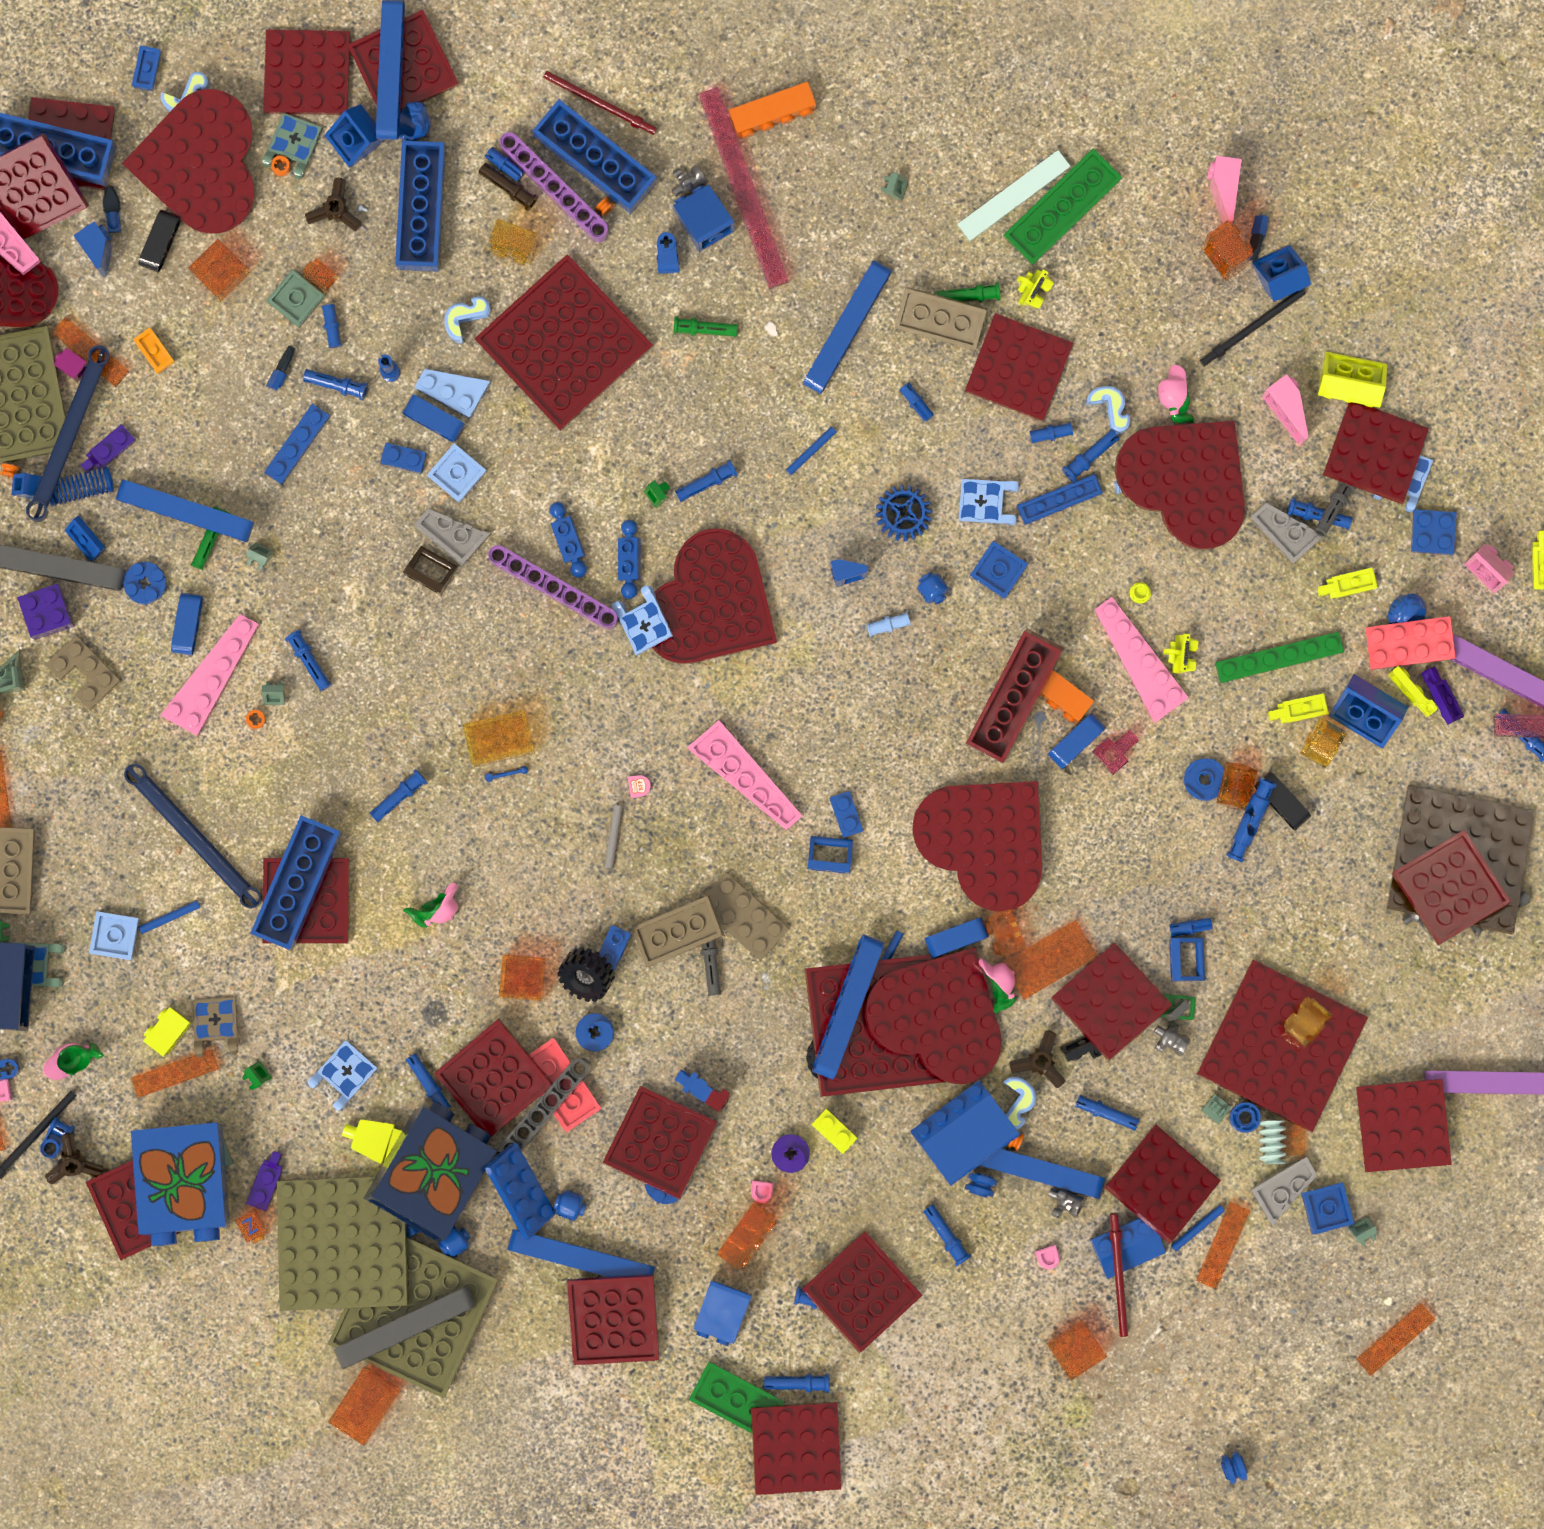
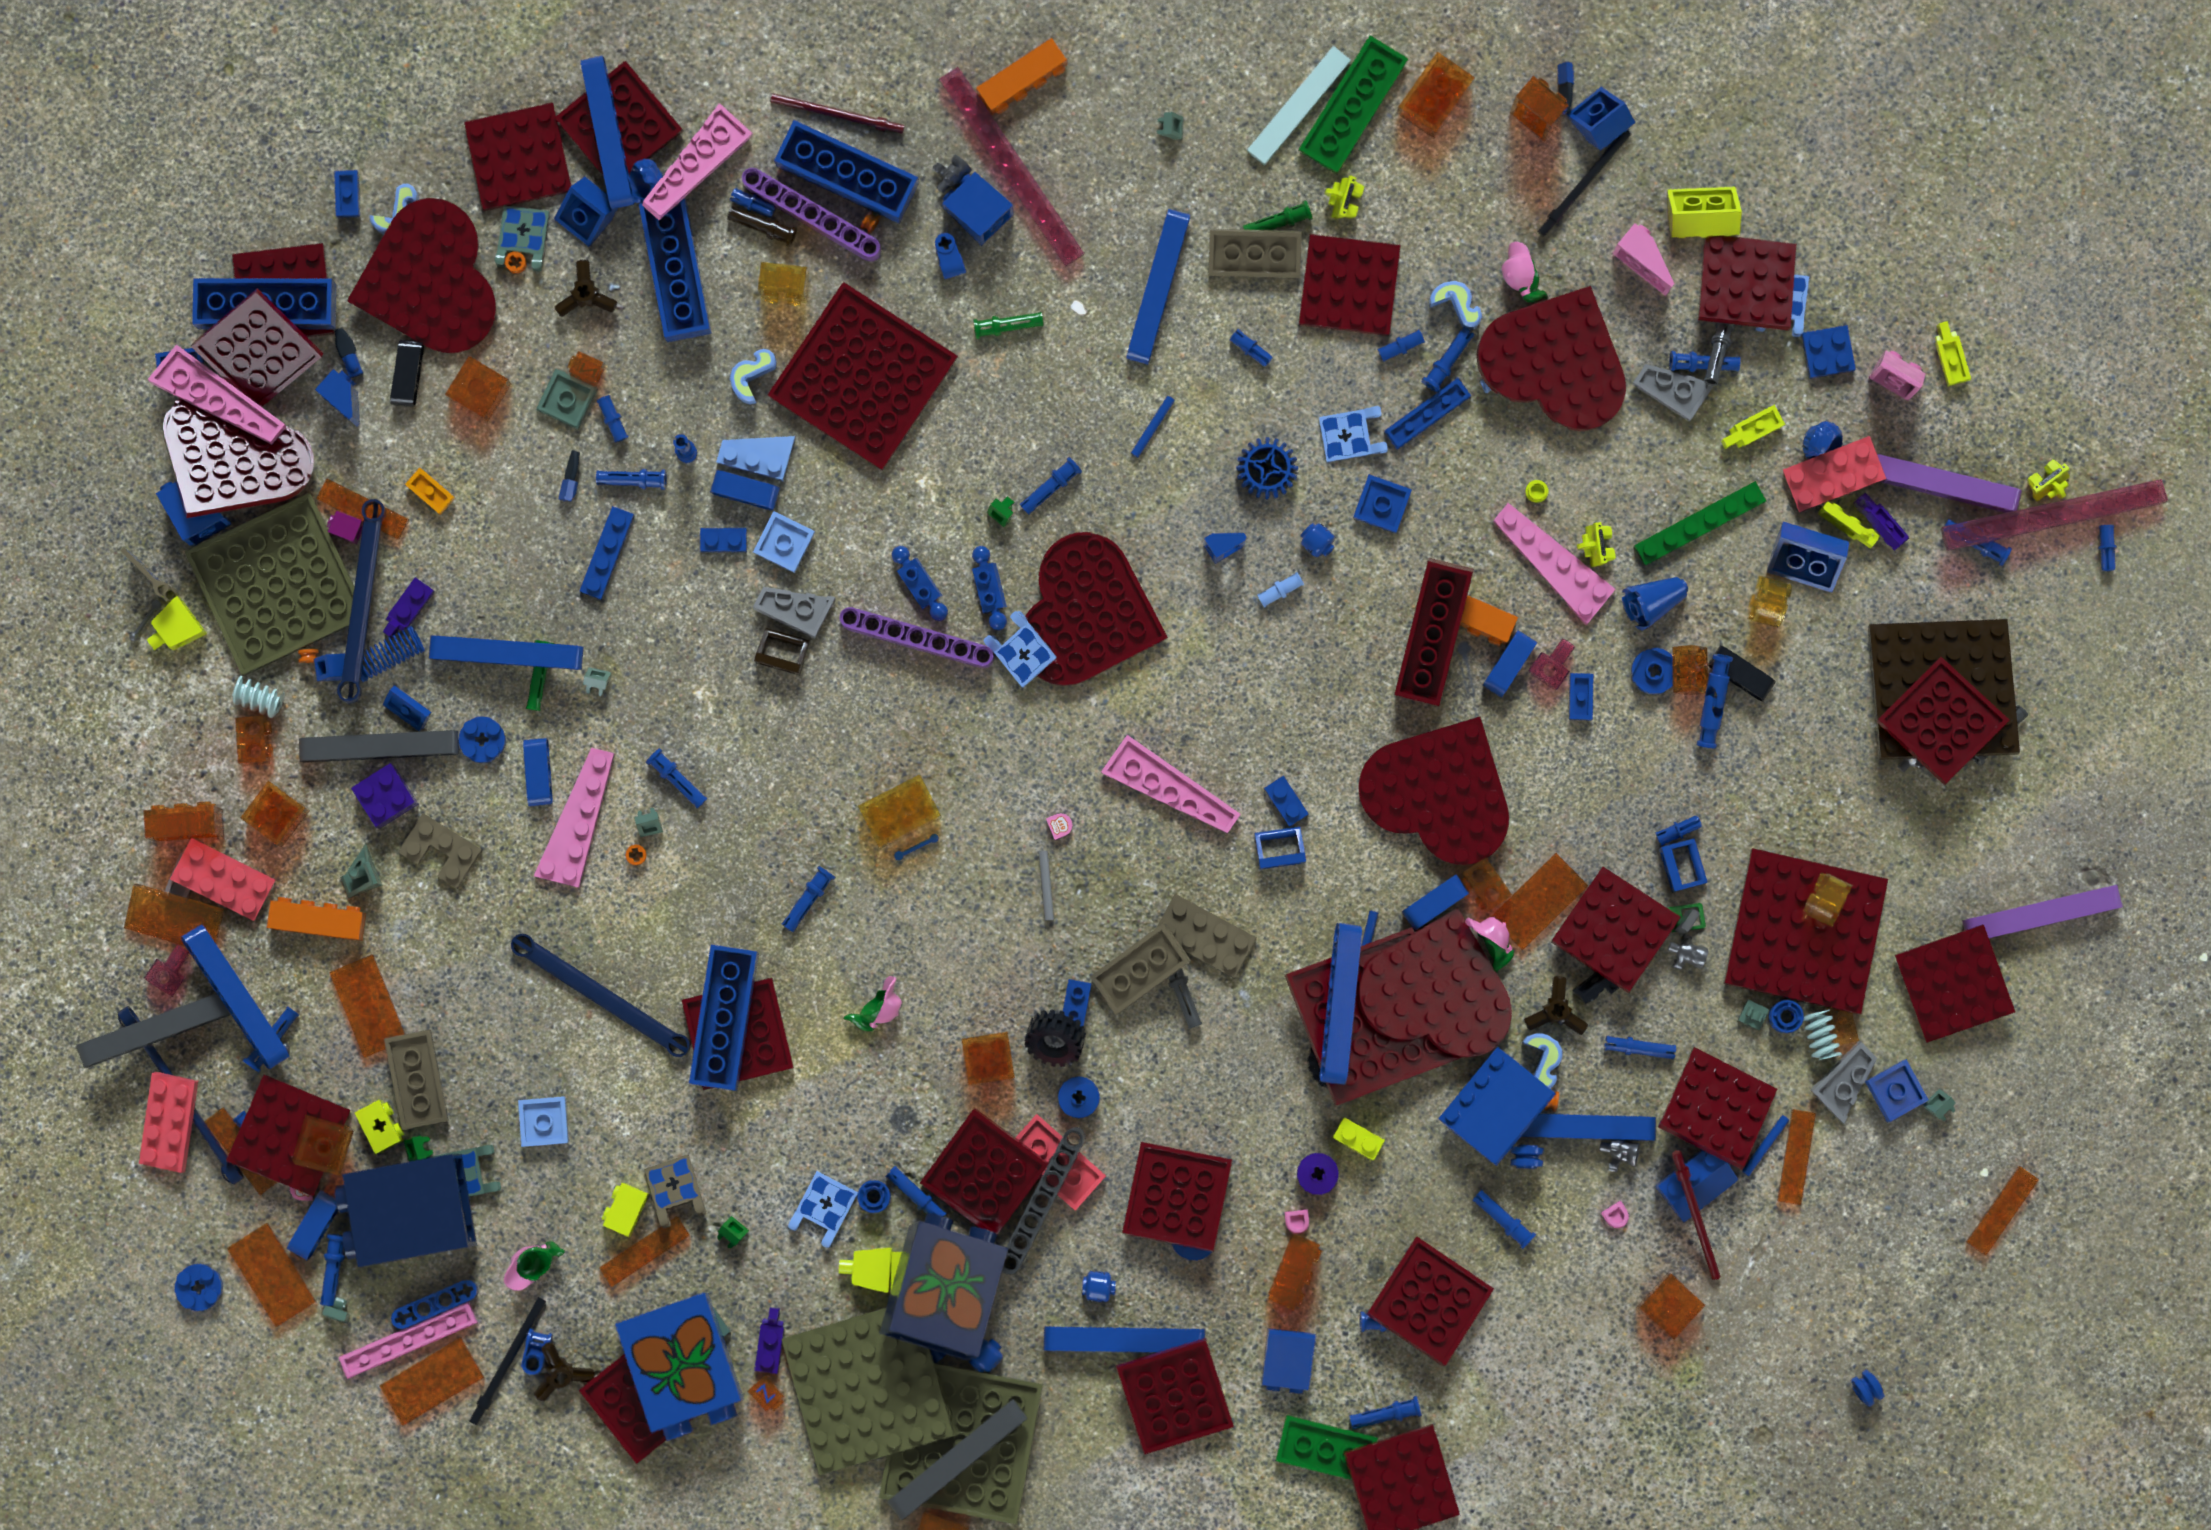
camera: 15 degrees left, 0 degrees up
(169, 917) = (596, 1087): blue bar -> none
(383, 1068) = (884, 1201): none -> blue wheel
(477, 106) = (708, 149): none -> bright pink wing
(520, 1190) = (1043, 1284): blue plate -> none
(701, 1090) = (1208, 1131): blue hips -> none
(1133, 786) = (1581, 696): none -> blue plate
(1138, 216) = (1435, 95): none -> clear orange brick
(1219, 715) = (1652, 600): none -> blue cone
(1224, 185) = (1517, 39): bright pink slope -> none
(1300, 709) = (1735, 572): neon yellow hinge -> none

